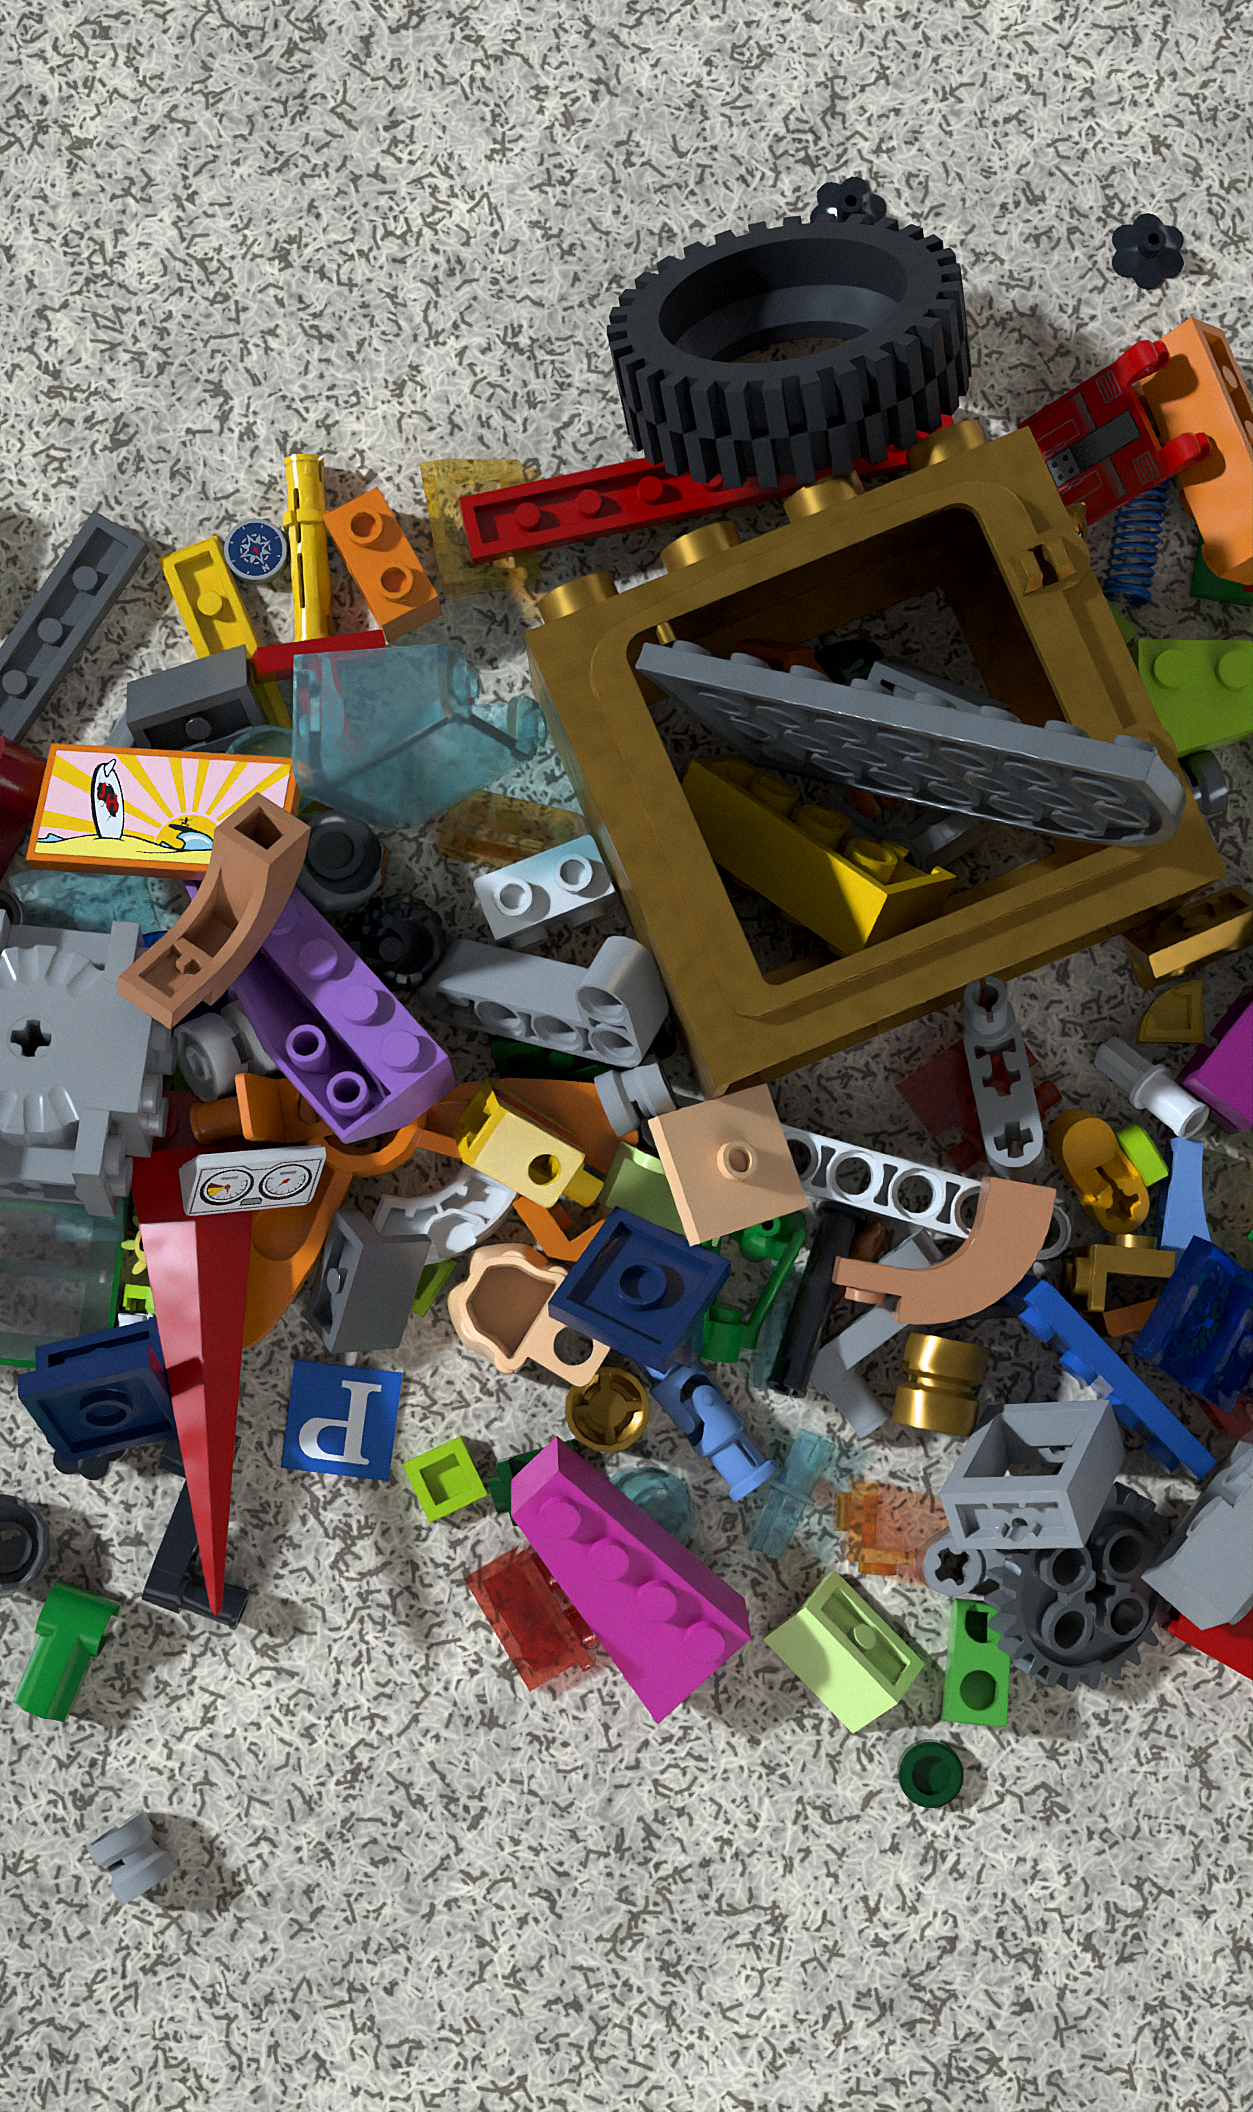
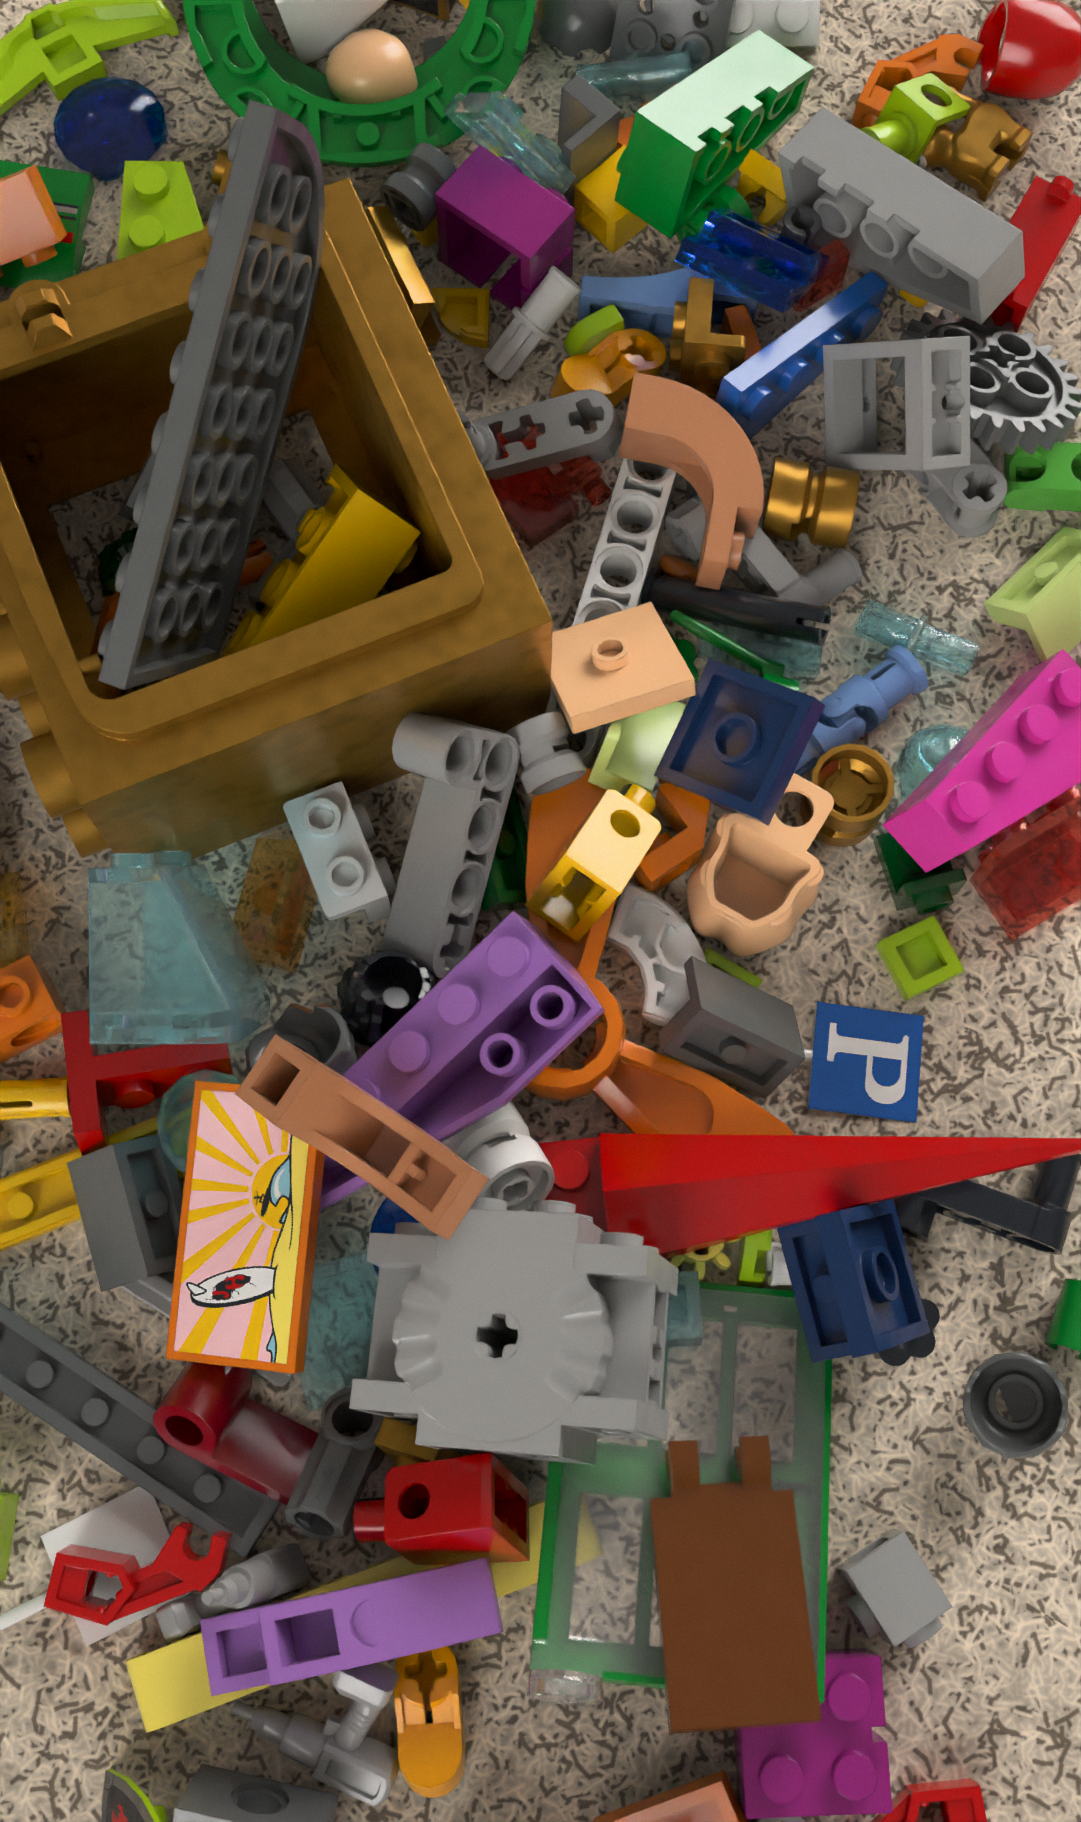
camera: 90 degrees left, 10 degrees down
(251, 1179) = (637, 1128): slope -> none
(261, 1112) = (565, 1119): orange bracket -> none
(857, 1517) = (942, 576): clear orange bracket -> none

